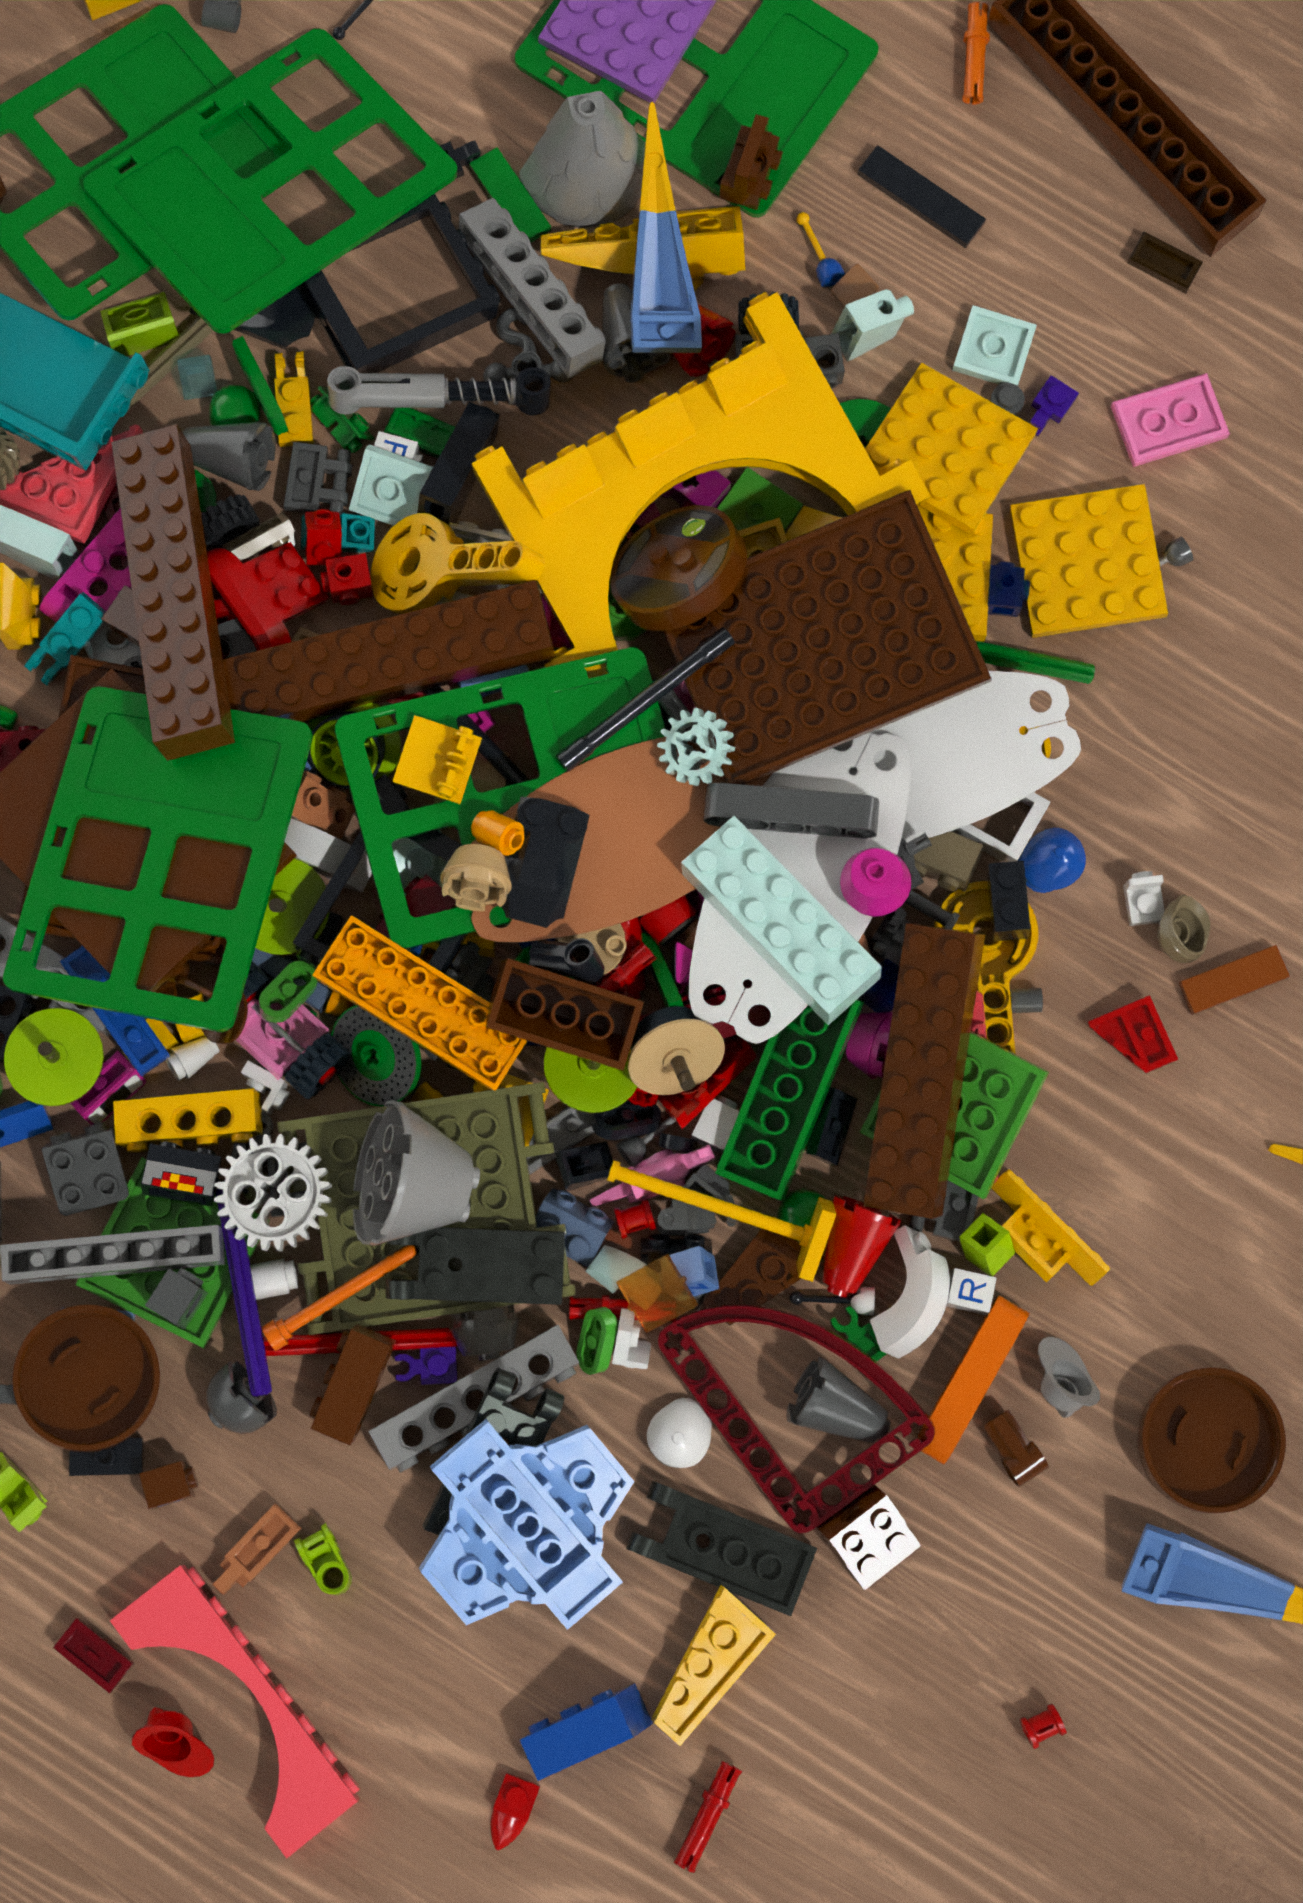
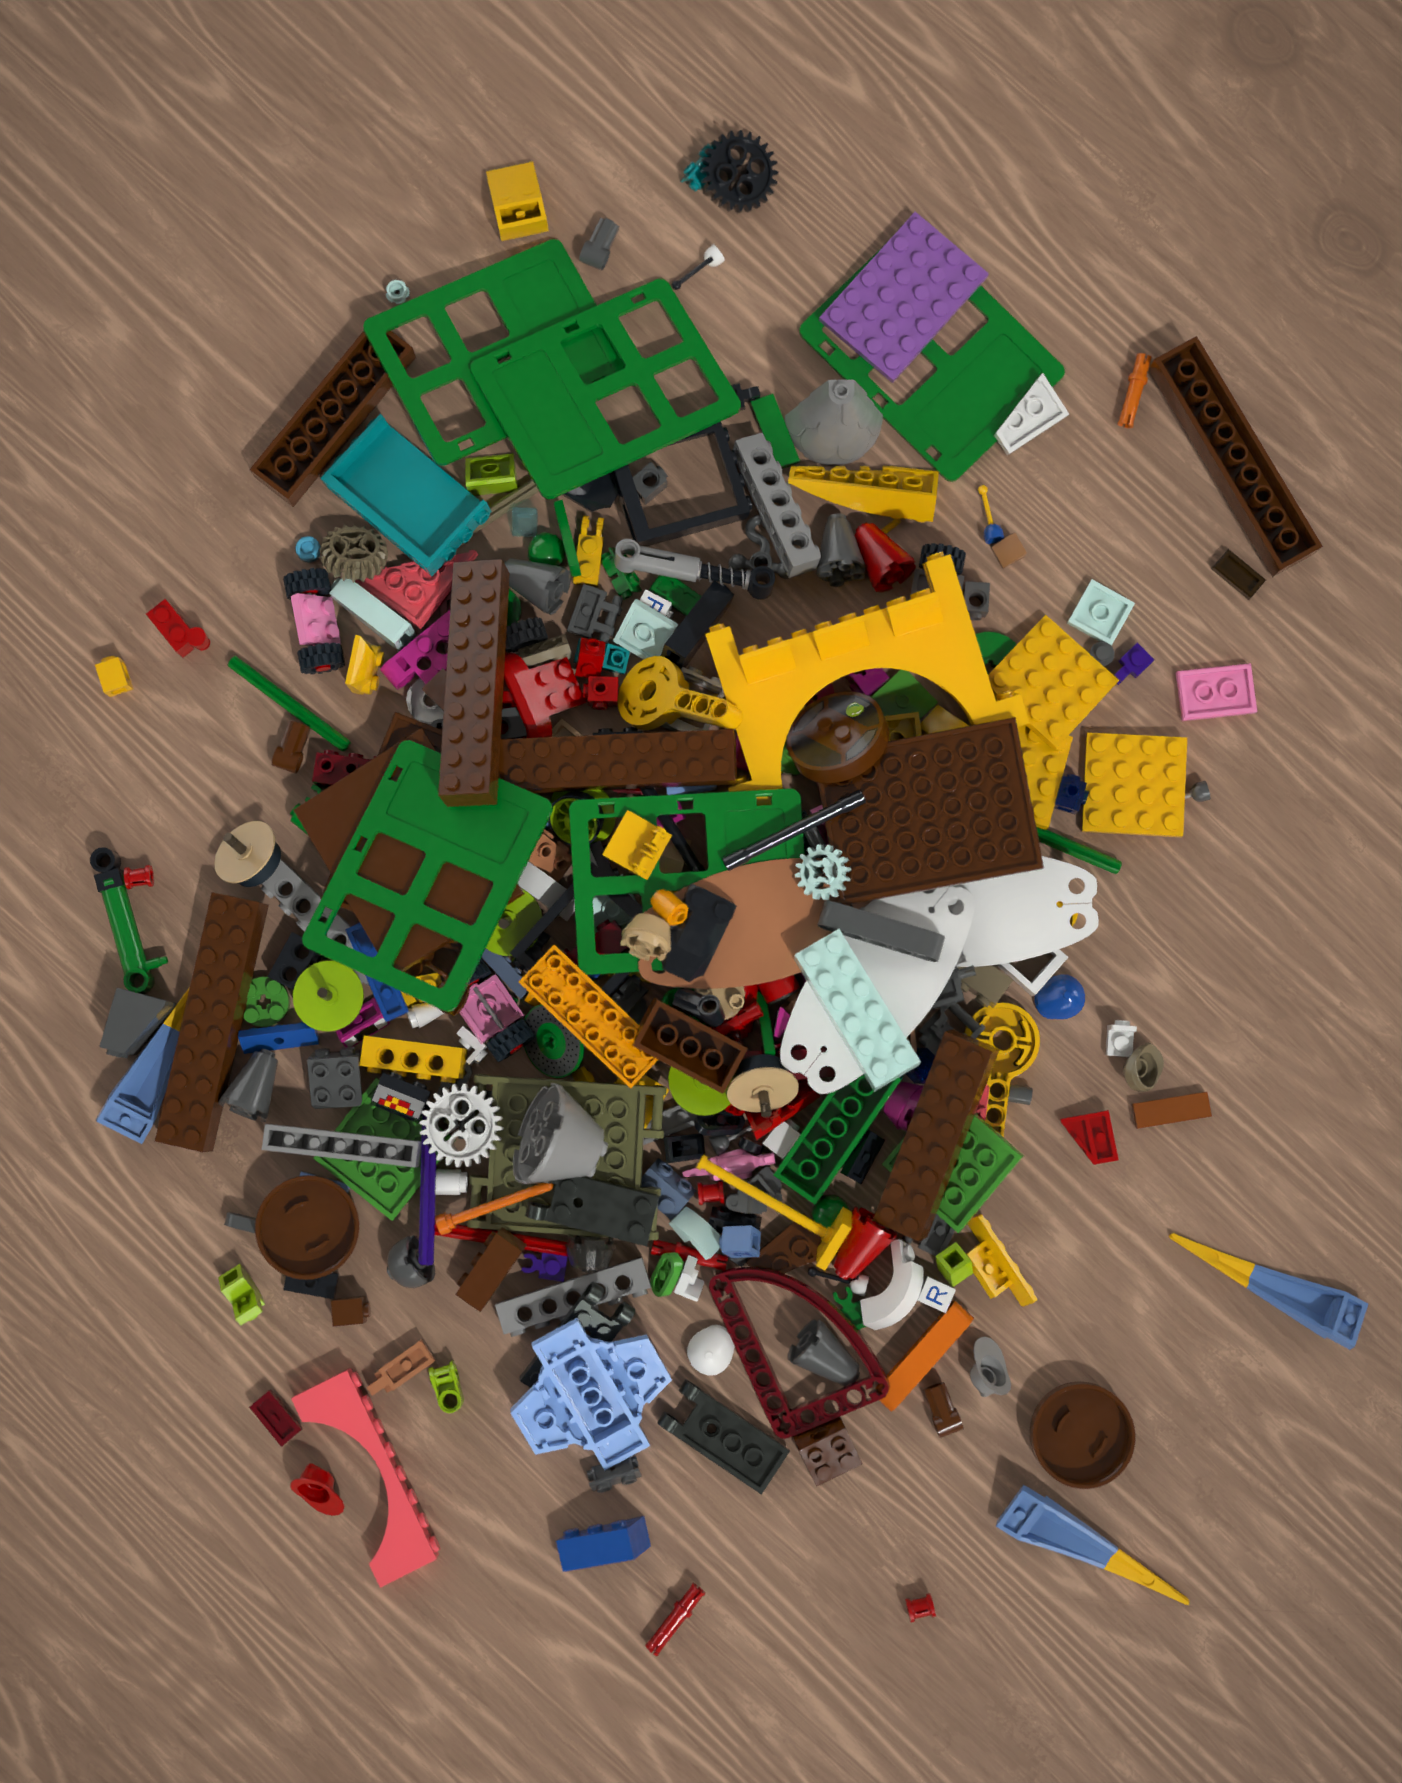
camera: 15 degrees right, 5 degrees up
(68, 636) = (397, 694): teal hinge -> none
(177, 1297) = (380, 1185): dark grey brick -> none
(285, 992) = (499, 983): bright green plate -> none
(355, 278) = (647, 493): none -> dark grey brick
(512, 1809) = (541, 1584): red plate -> none
(597, 1628) = (623, 1473): none -> dark grey hinge
(657, 1293) = (715, 1252): clear orange piece -> none
(663, 296) = (868, 535): medium blue plate -> none
(713, 1662) = (701, 1514): yellow wing -> none
(750, 165) = (952, 445): reddish brown brick -> none
(847, 112) = (1031, 417): none -> white wing
(871, 322) = (1015, 578): light aqua torso -> none
(875, 882) = (930, 995): dark pink cone -> none
(921, 196) = (1072, 490): black tile -> none
(1008, 901) = (1022, 1024): black brick -> none

